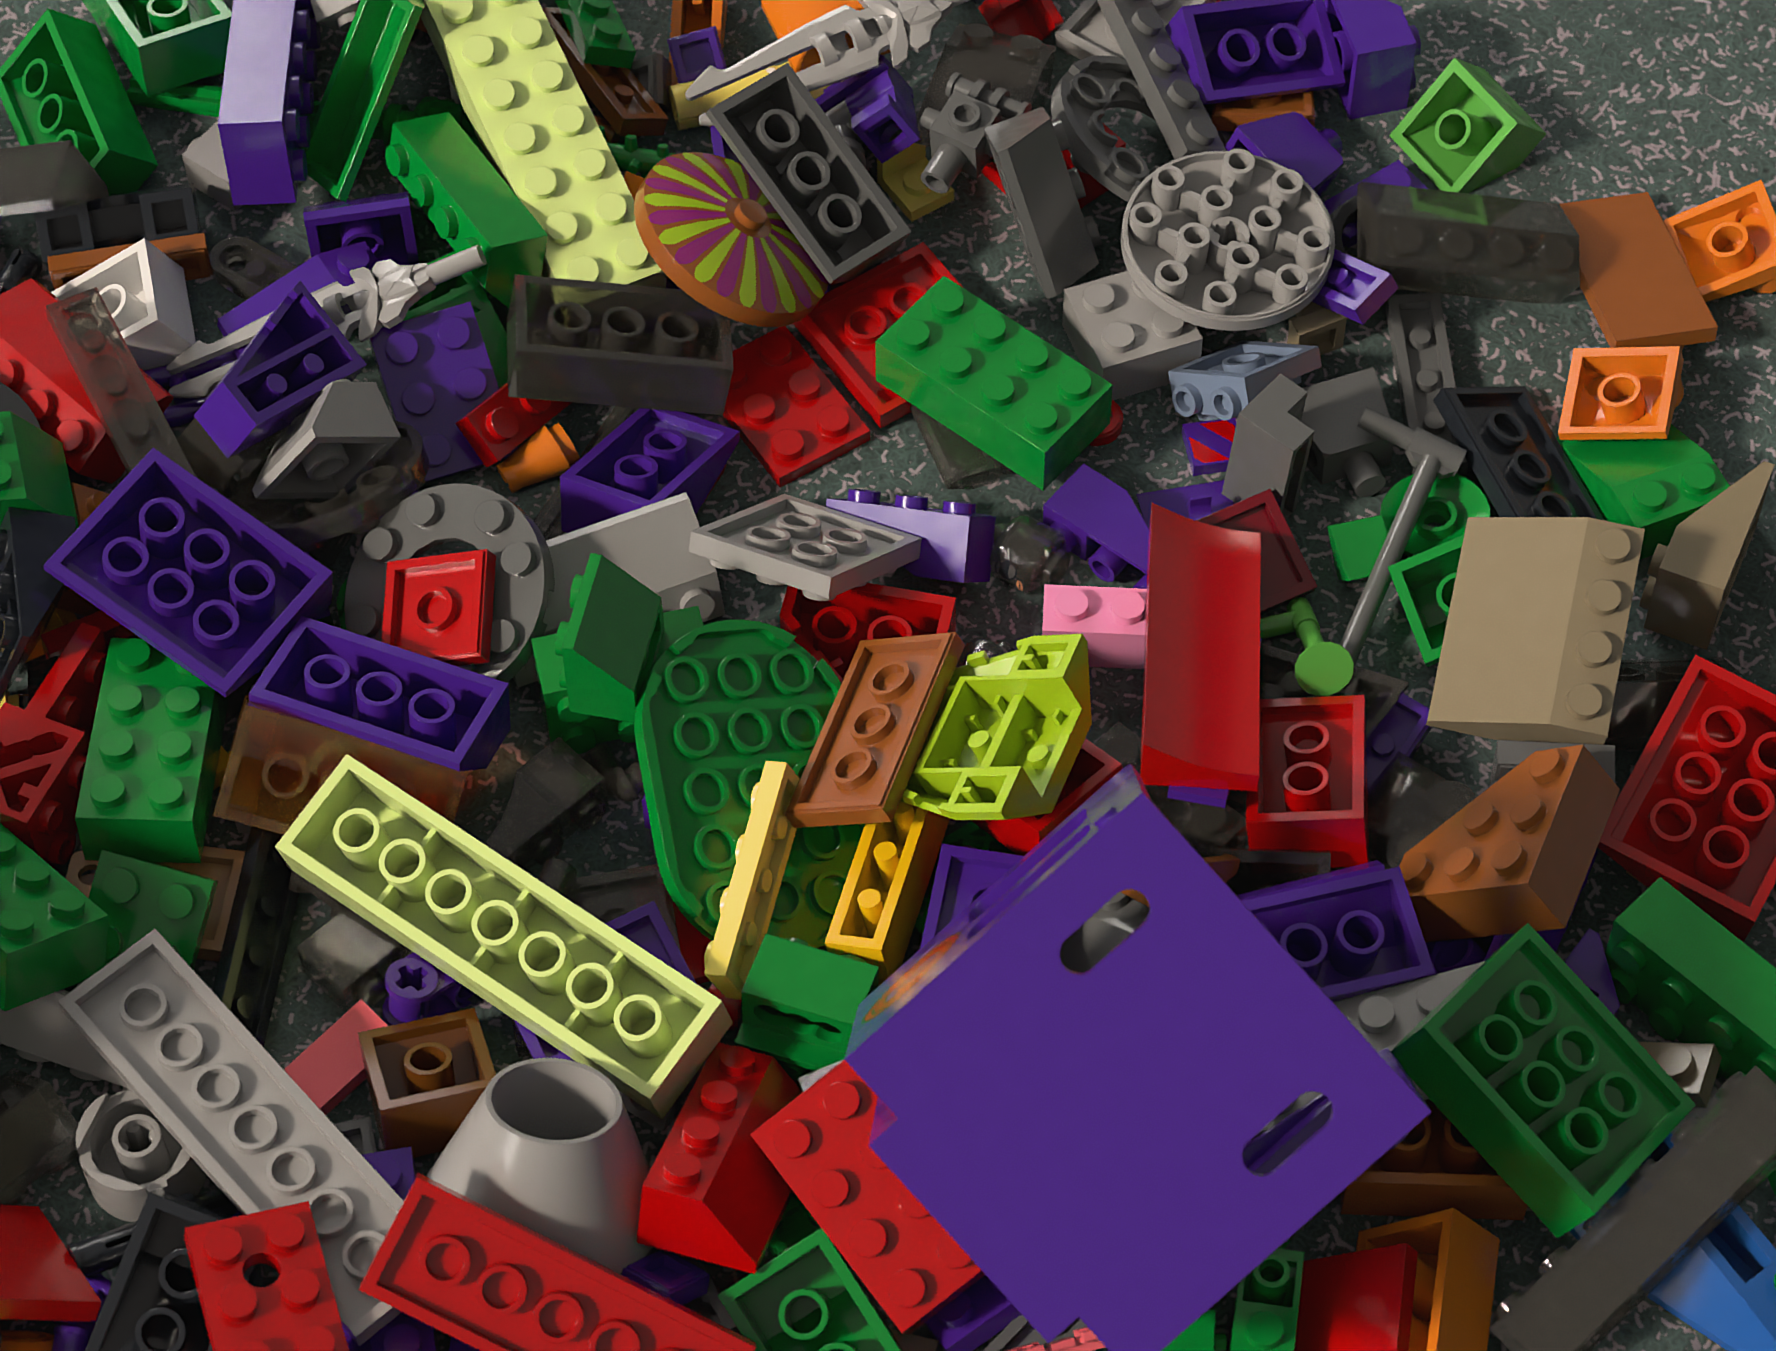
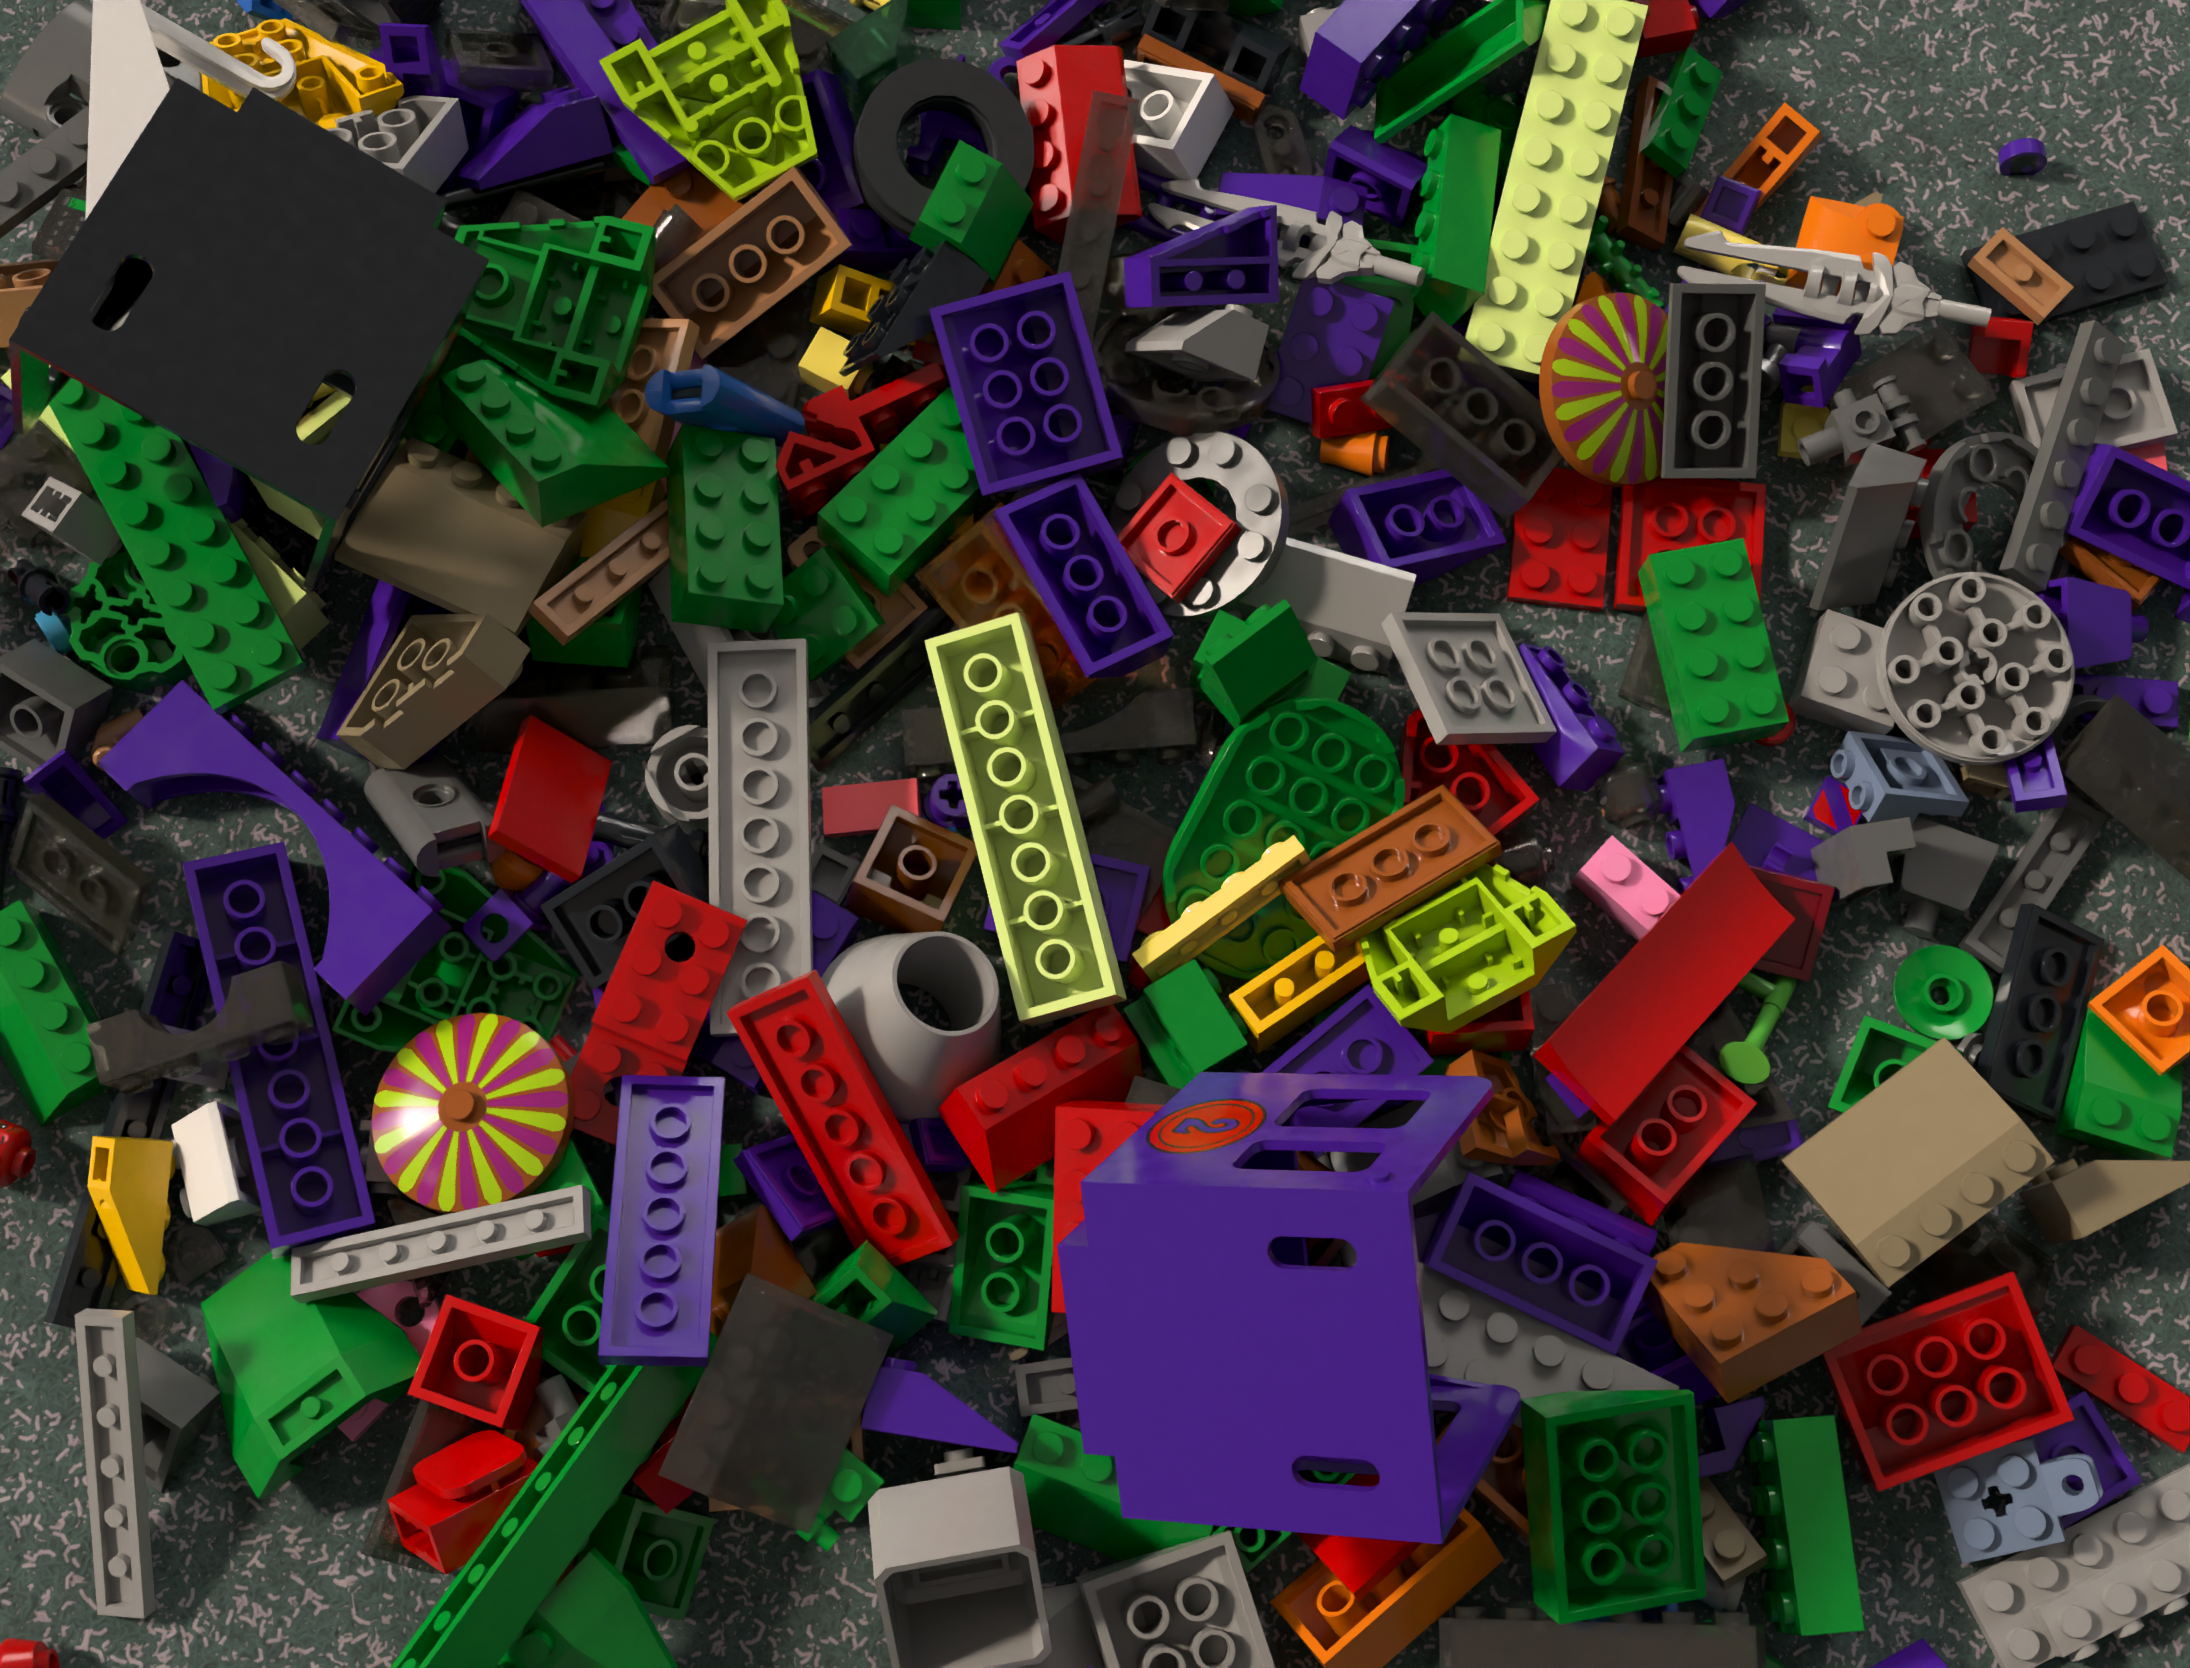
camera: 35 degrees right, 20 degrees up
(1356, 546) = (1867, 977): green slope -> none
(1432, 459) = (1976, 952): dark grey bar -> none

